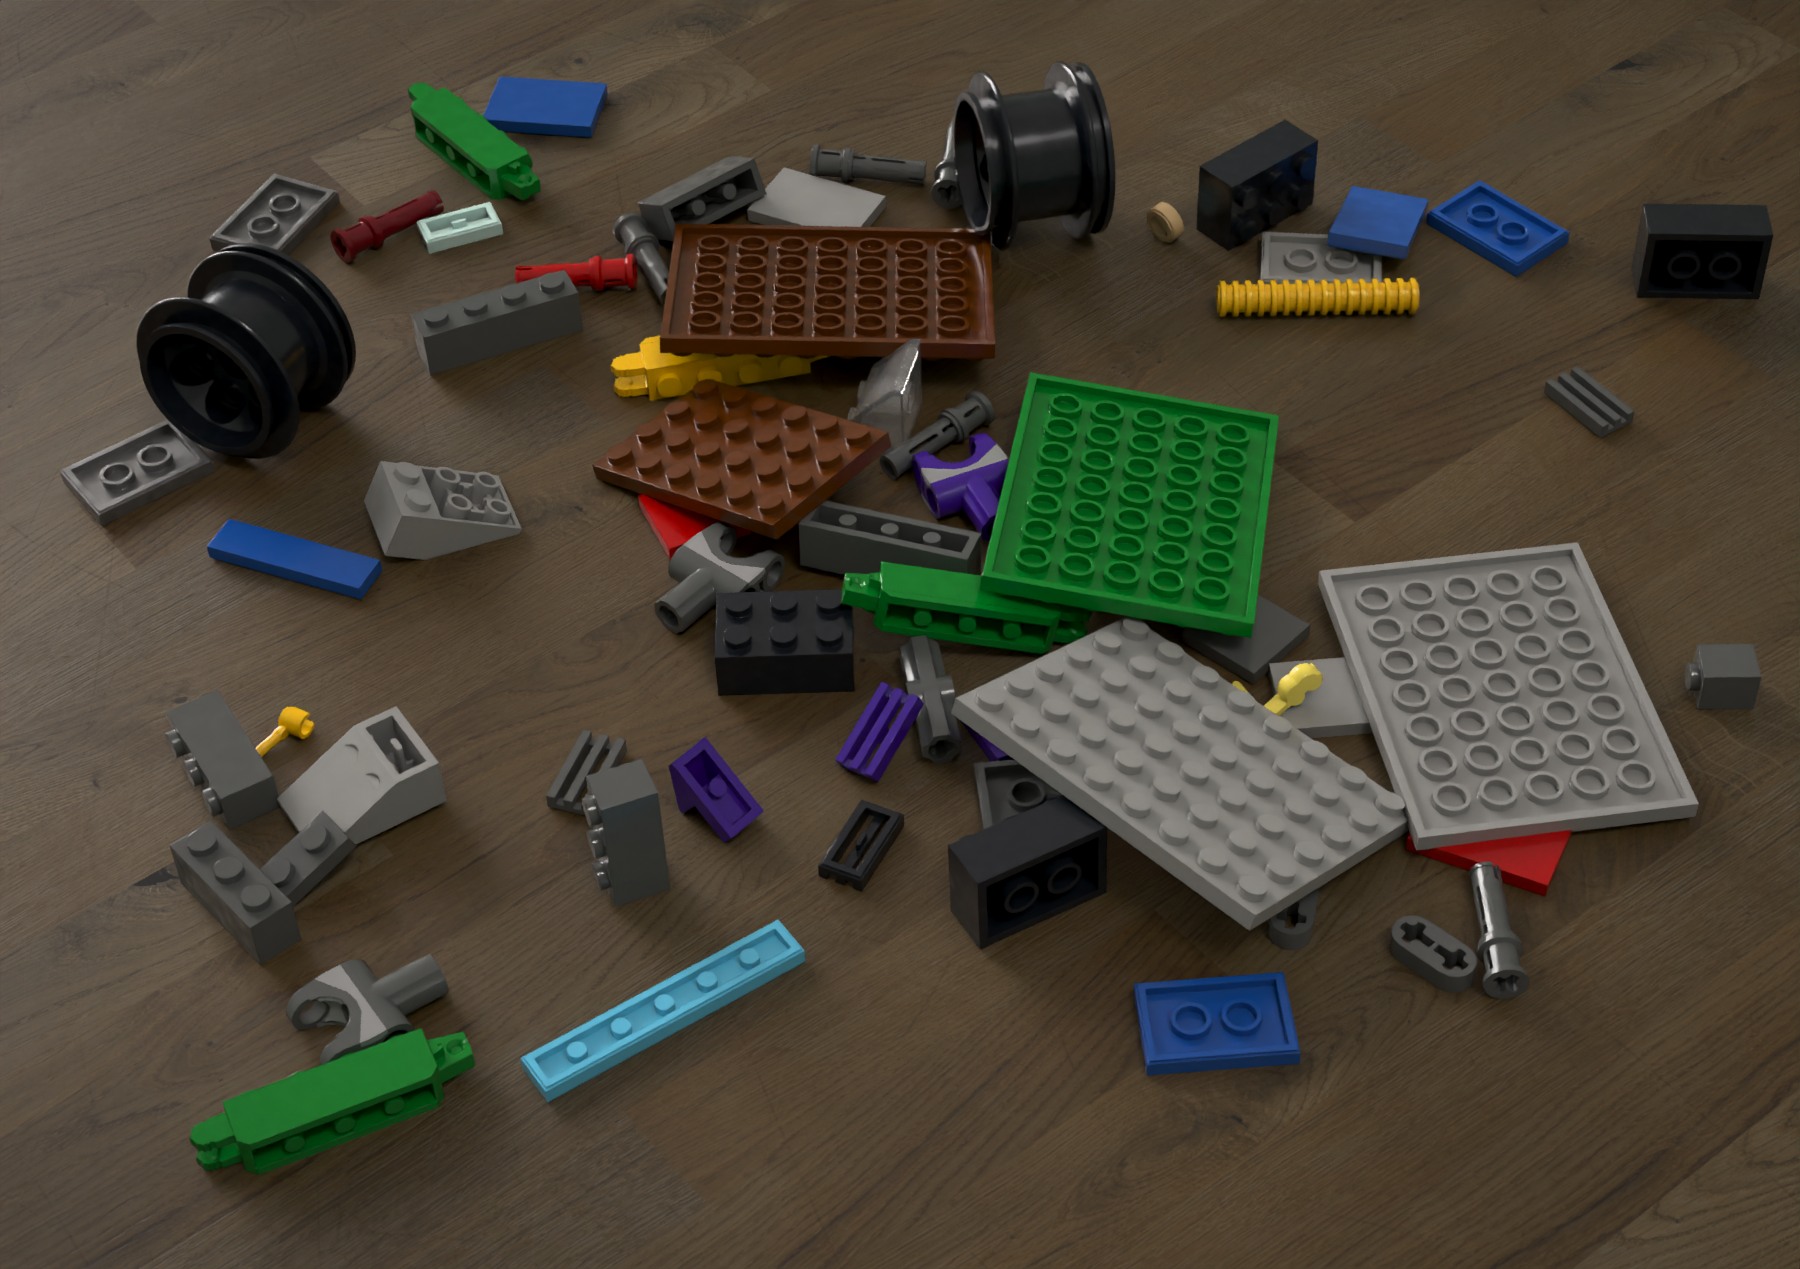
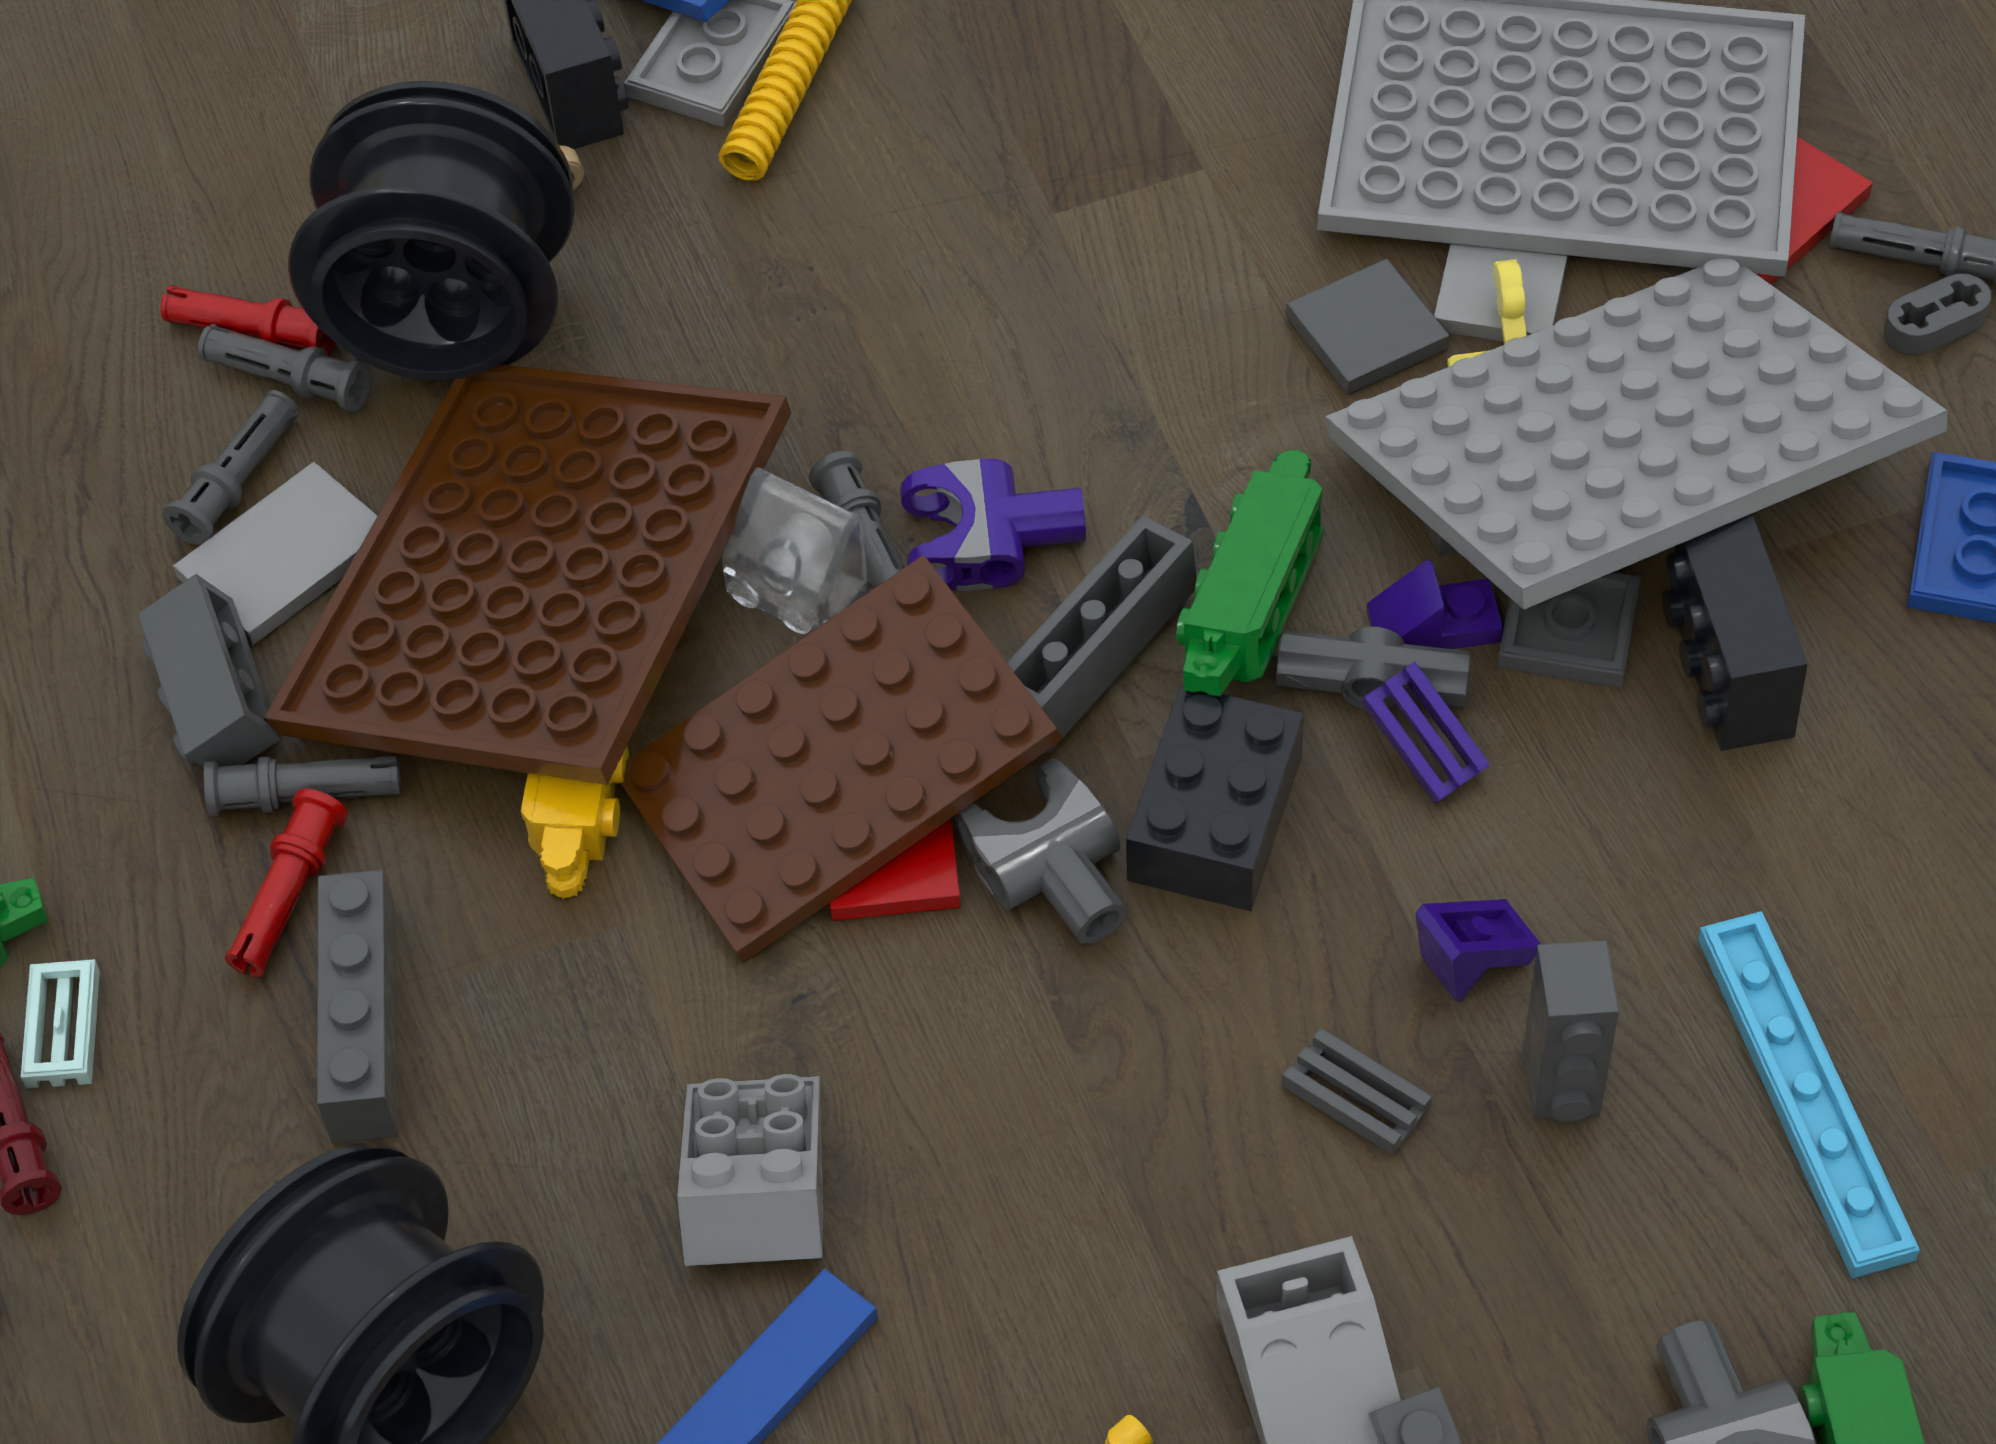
camera: 70 degrees left, 10 degrees up
(847, 872) = (1583, 819): black tile -> none
(1134, 505) = (1132, 351): green plate -> none

